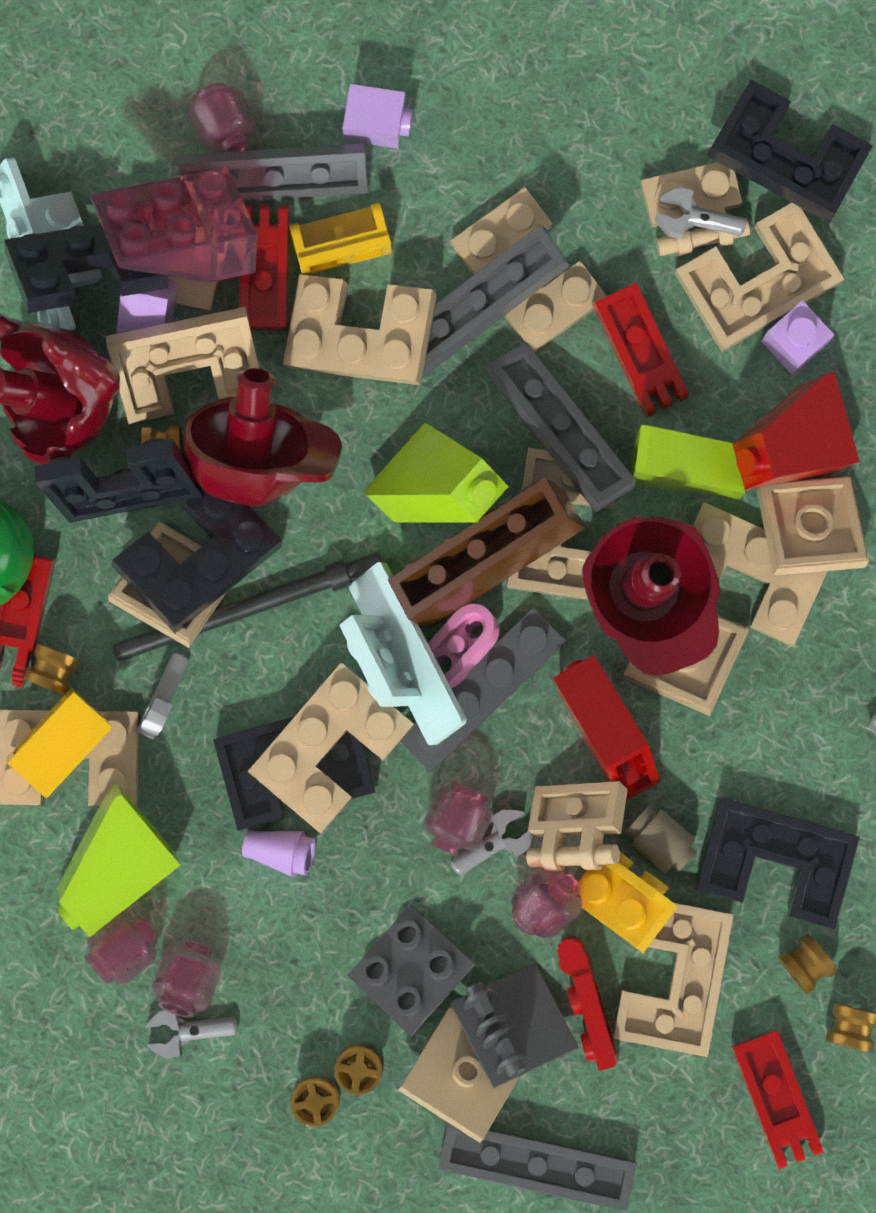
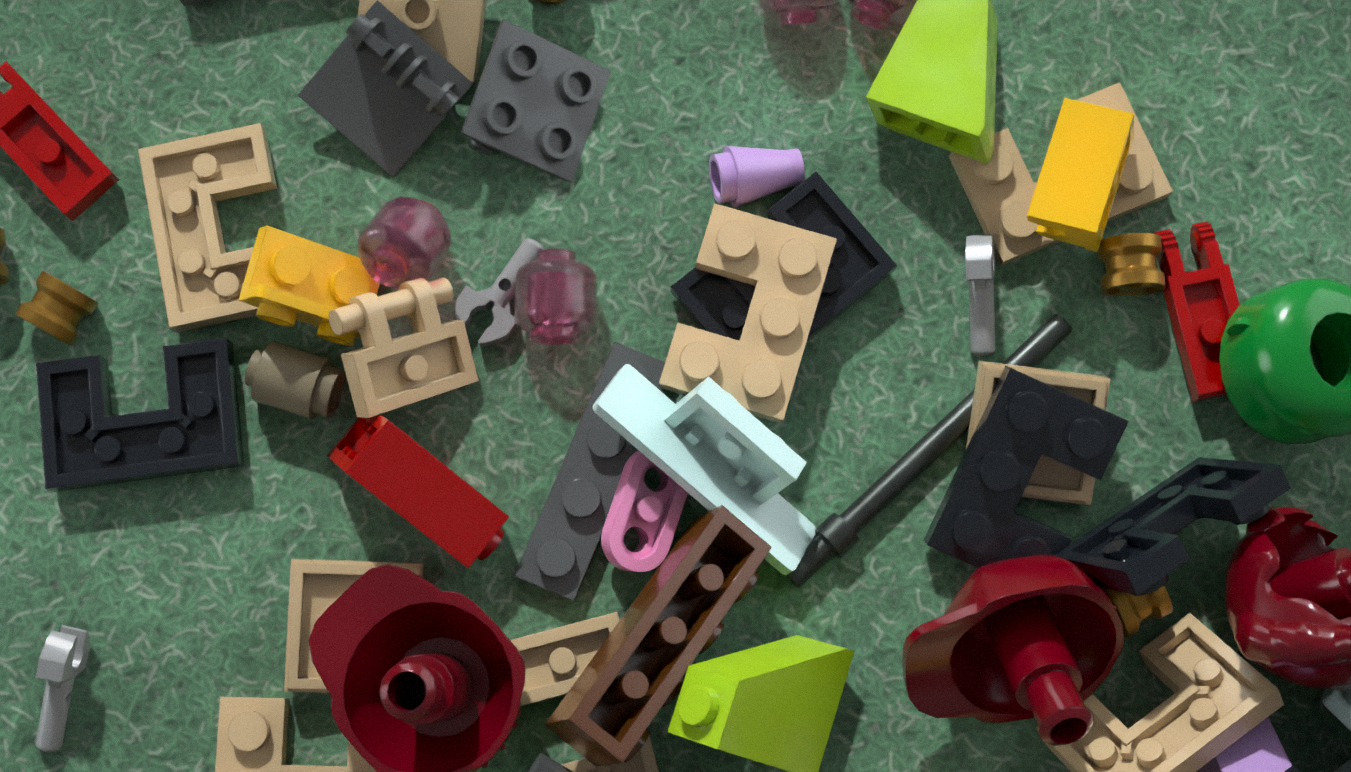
camera: 155 degrees right, 5 degrees down
(587, 1000) = (310, 155): red hinge -> none

